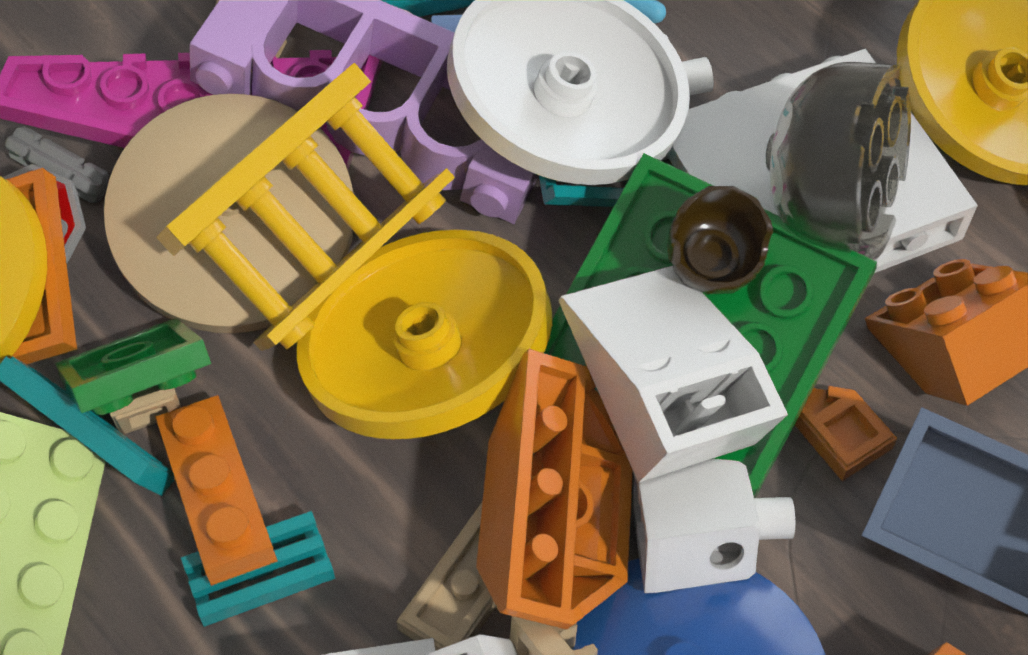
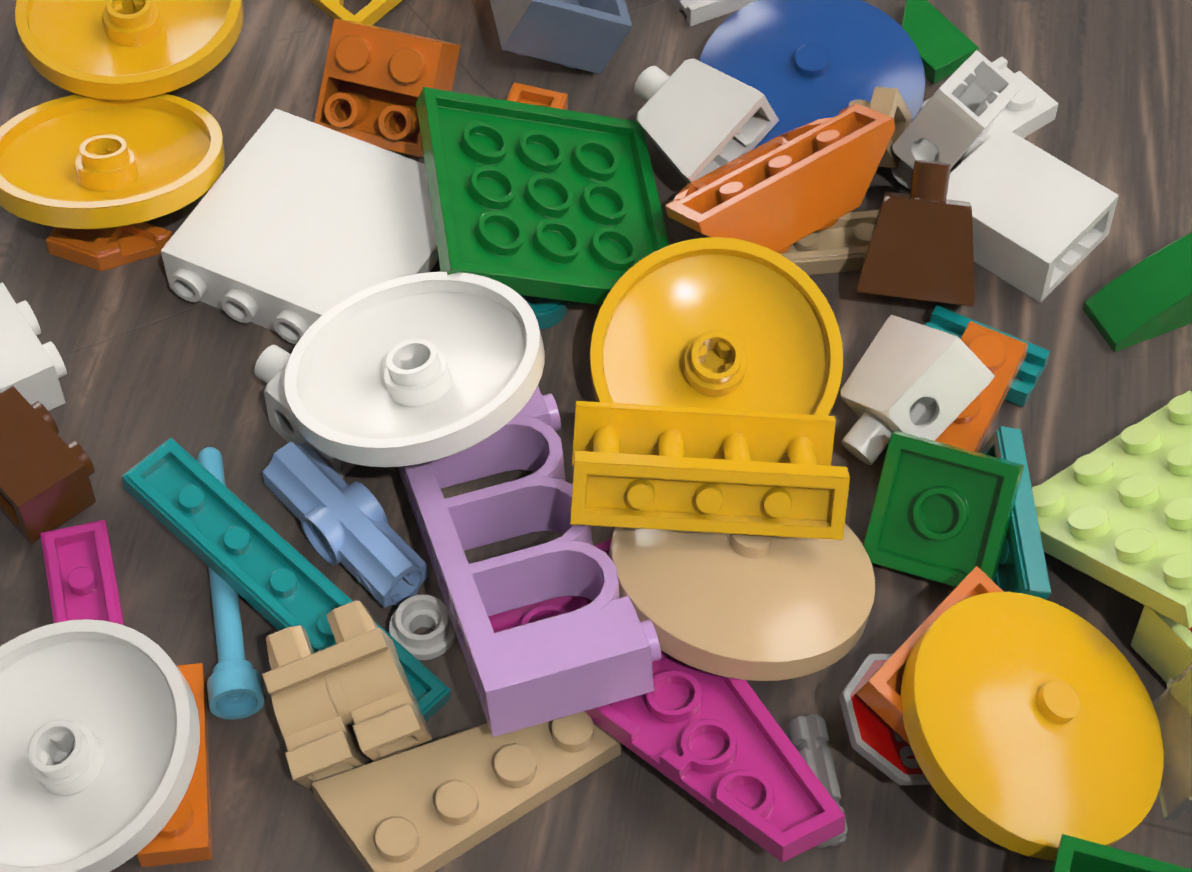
camera: 130 degrees left, 5 degrees down
(256, 439) = (911, 384): none -> white torso
(382, 574) = (922, 243): none -> reddish brown torso
(671, 372) = (626, 150): white slope -> none
(719, 240) = (501, 167): dark brown hair -> none
(842, 156) = (351, 131): clear smoke cylinder -> none

